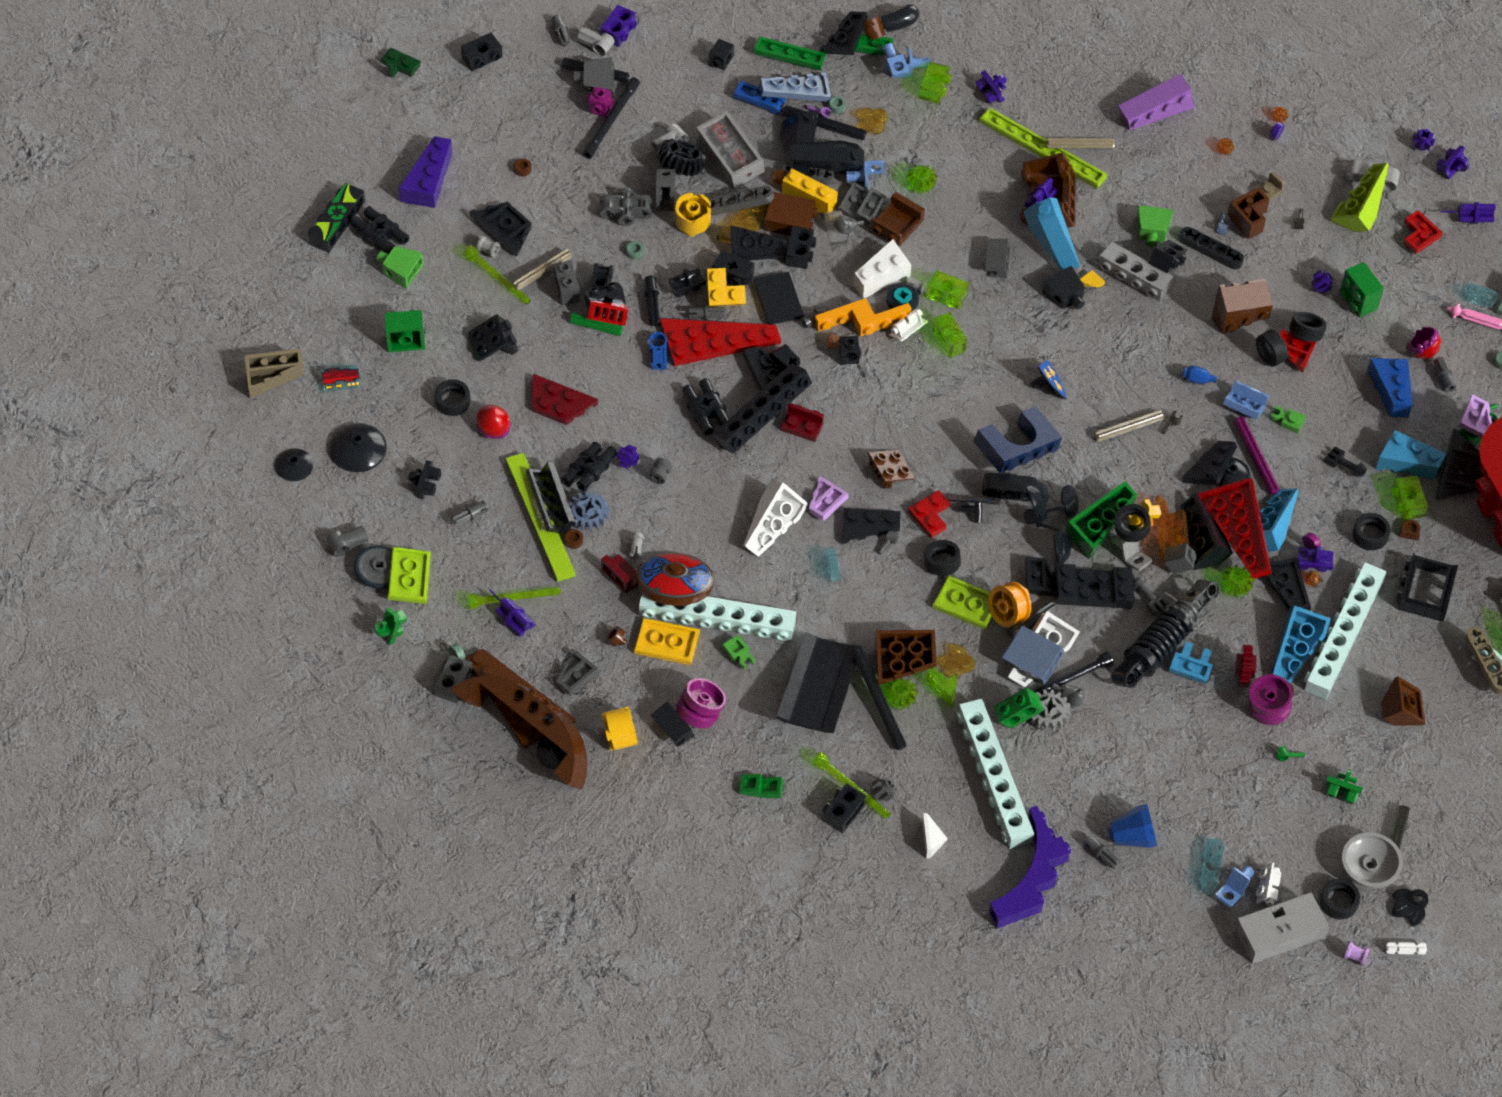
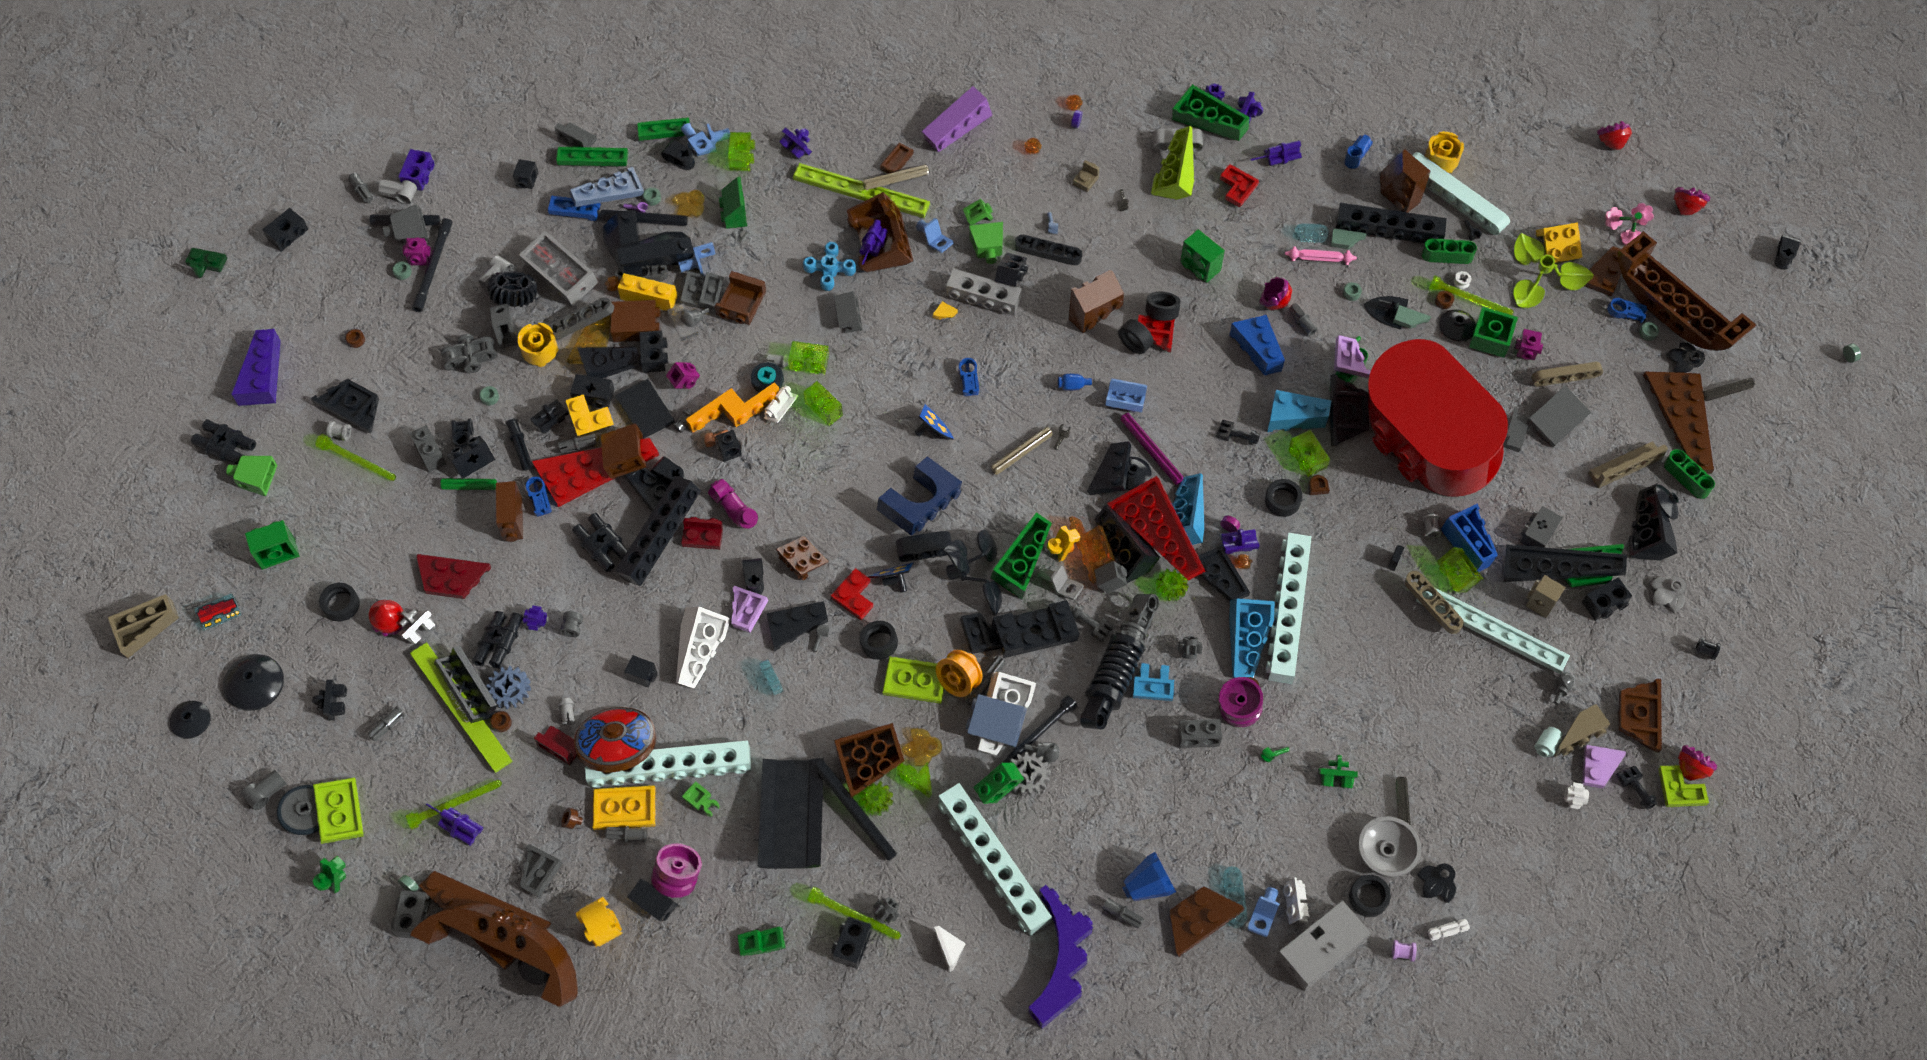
camera: 15 degrees left, 5 degrees up
(336, 217) = (175, 440): black brick -> none
(491, 337) = (365, 525): black bracket -> none
(524, 431) = (411, 623): none -> hips
(541, 269) = (395, 445): dark tan axle -> none
(581, 116) = (402, 270): none -> sand green tile
(616, 308) = (485, 475): red slope -> none
(628, 356) = (509, 511): none -> reddish brown brick
(663, 663) = (626, 834): none -> dark grey axle
(713, 528) = (640, 671): none -> black brick
(748, 329) = (622, 451): none -> reddish brown panel
(777, 29) = (574, 135): none -> dark grey panel
(823, 275) = (683, 375): none -> magenta brick
(839, 407) = (732, 504): none -> magenta piece
(840, 471) = (753, 575): none -> black piece
(847, 36) = (644, 125): black wing -> none
(873, 72) = (678, 155): none -> black piece
(882, 271) = (740, 354): white wedge -> none
(894, 21) = (683, 101): black piece -> none
(914, 131) = (733, 205): none -> green slope
(921, 178) = (753, 250): clear neon green gear -> none
(991, 210) = (829, 266): none -> dark azure gear
(1050, 229) = (891, 271): dark azure wedge -> none
(1065, 289) = (921, 327): black torso -> none
(1086, 126) = (897, 158): none -> reddish brown tile
(1098, 347) = (969, 379): none -> blue piece
(1101, 206) = (933, 234): none -> medium blue bracket
(1132, 536) = (1052, 541): black tyre -> none
(1152, 194) = (978, 211): none -> bright green bracket
(1174, 873) = (1200, 917): none -> reddish brown wing
(1222, 717) = (1199, 733): none -> dark grey brick
(1236, 640) = (1190, 647): none -> dark grey gear
(1245, 666) = (1207, 674): dark red gear -> none
(1248, 210) = (1073, 206): reddish brown brick -> none
(1291, 420) = (1173, 403): bright green plate -> none
(1322, 281) = (1163, 257): dark purple gear -> none
(1403, 704) = (1367, 670): reddish brown slope -> none
(1412, 157) = (1210, 114): none -> green wedge
(1423, 608) = (1332, 540): black window -> none
(1464, 613) = (1396, 557): none -> black tile

